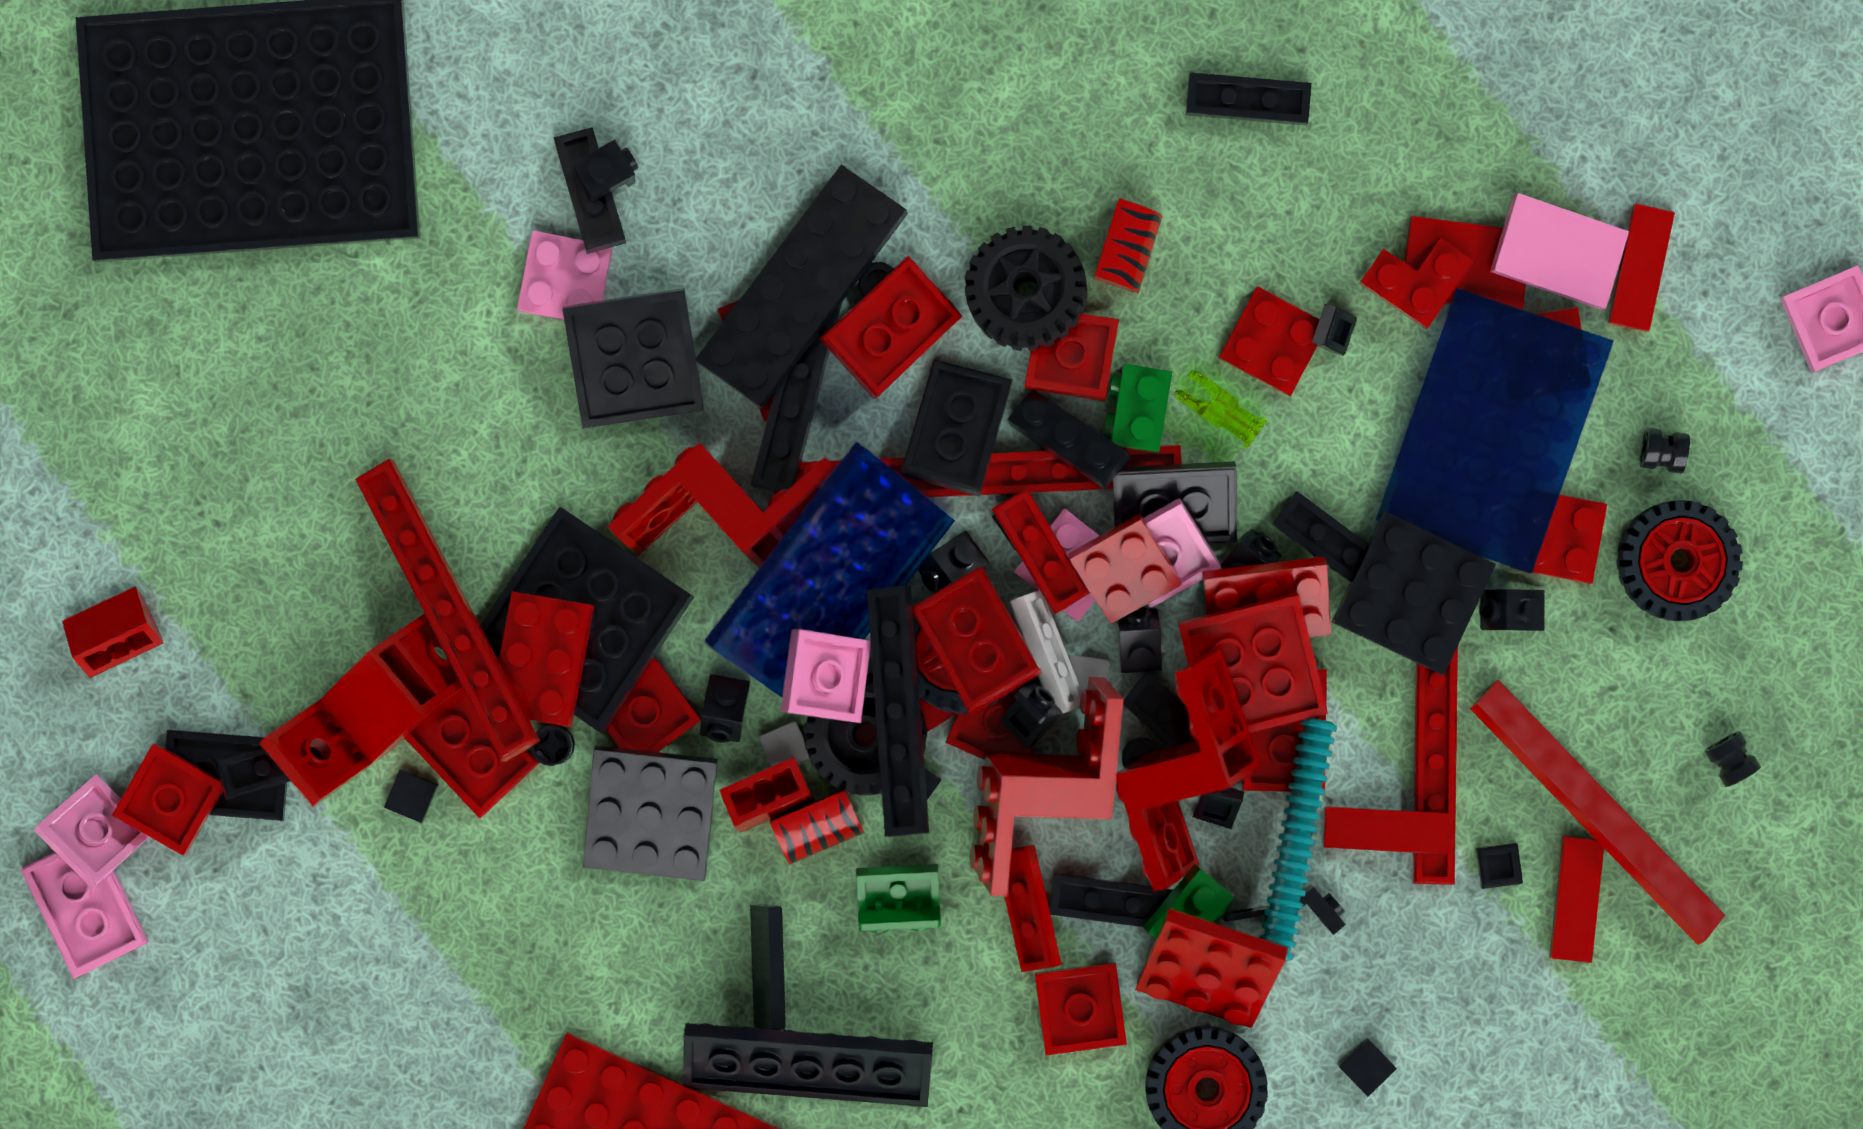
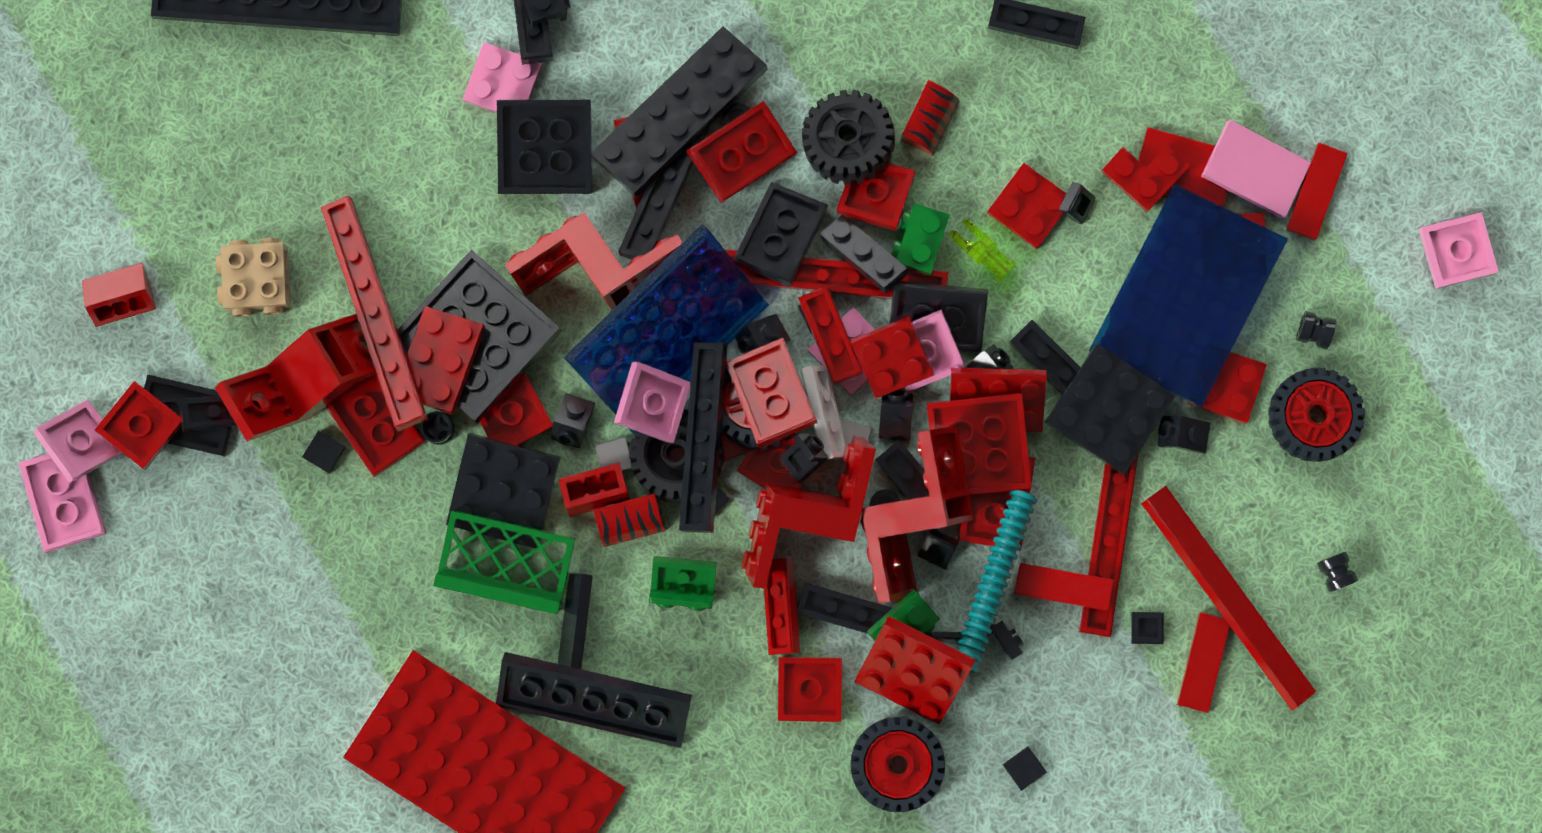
camera: 10 degrees right, 5 degrees down
(284, 584) = (254, 277): none -> tan brick
(666, 941) = (499, 589): none -> green fence

